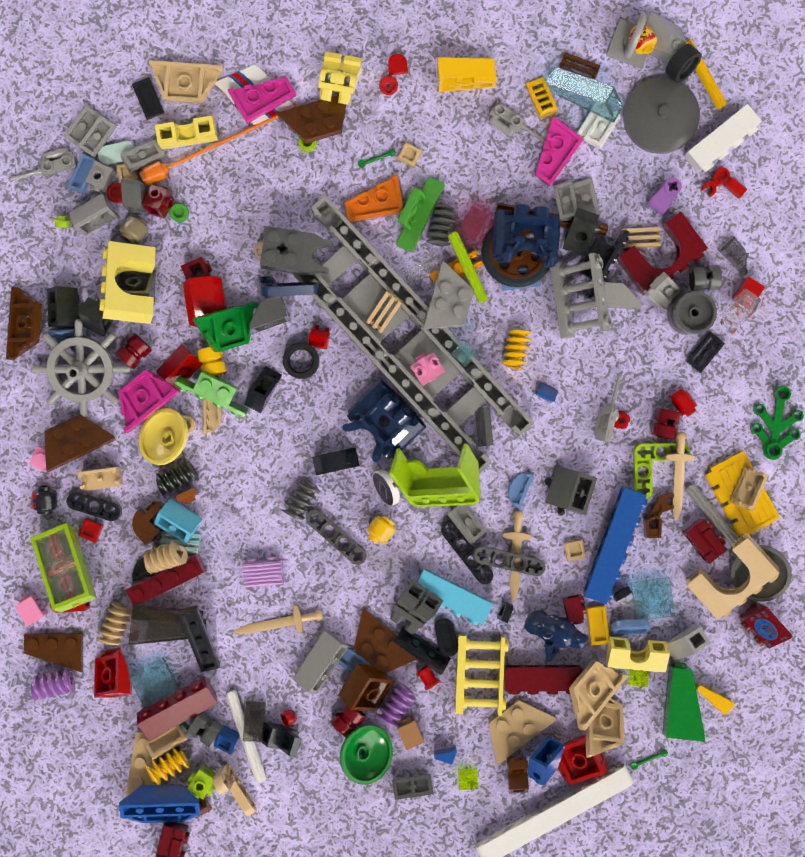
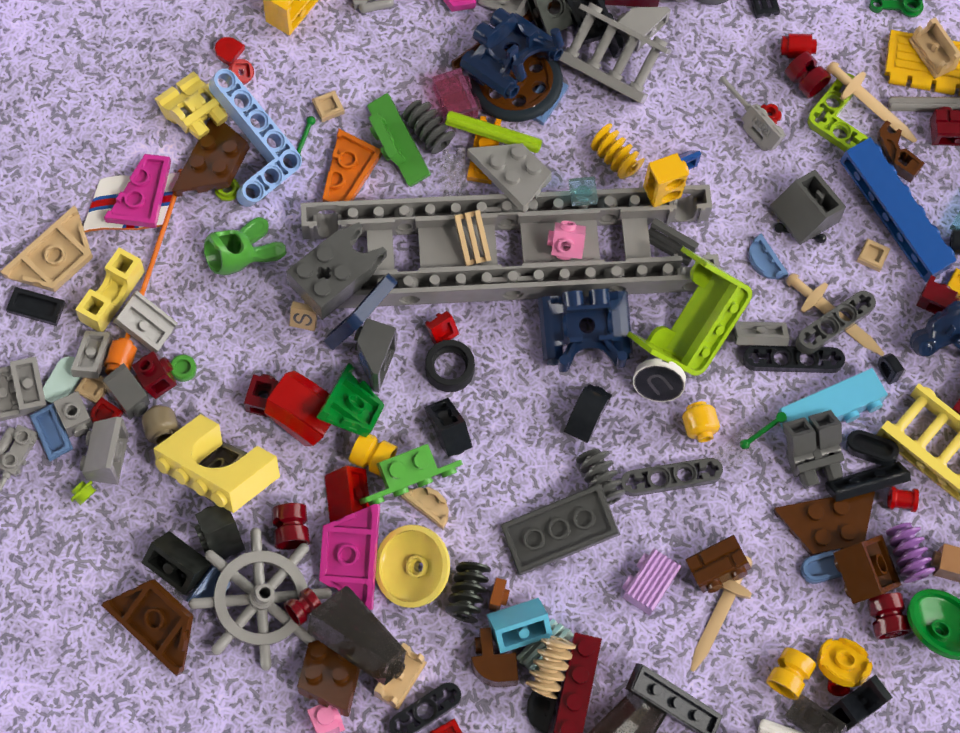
camera: 55 degrees left, 20 degrees down
(91, 397) = (300, 608): none -> dark red wheel
(96, 440) = (357, 635): none -> clear smoke slope
(184, 169) = (145, 322): none -> light grey plate
(251, 500) = (560, 529): none -> dark grey tile
(267, 180) = (233, 249): none -> bright green piece
(271, 688) = (792, 670): none -> yellow wheel
(300, 603) = (718, 564): none -> reddish brown brick
(301, 713) = (844, 662): none -> yellow tile
(320, 662) = (800, 596): light grey brick -> none
(349, 134) = (257, 136): none -> light blue beam
(417, 574) = (780, 418): none -> green hinge
(509, 398) = (665, 179): none -> yellow brick

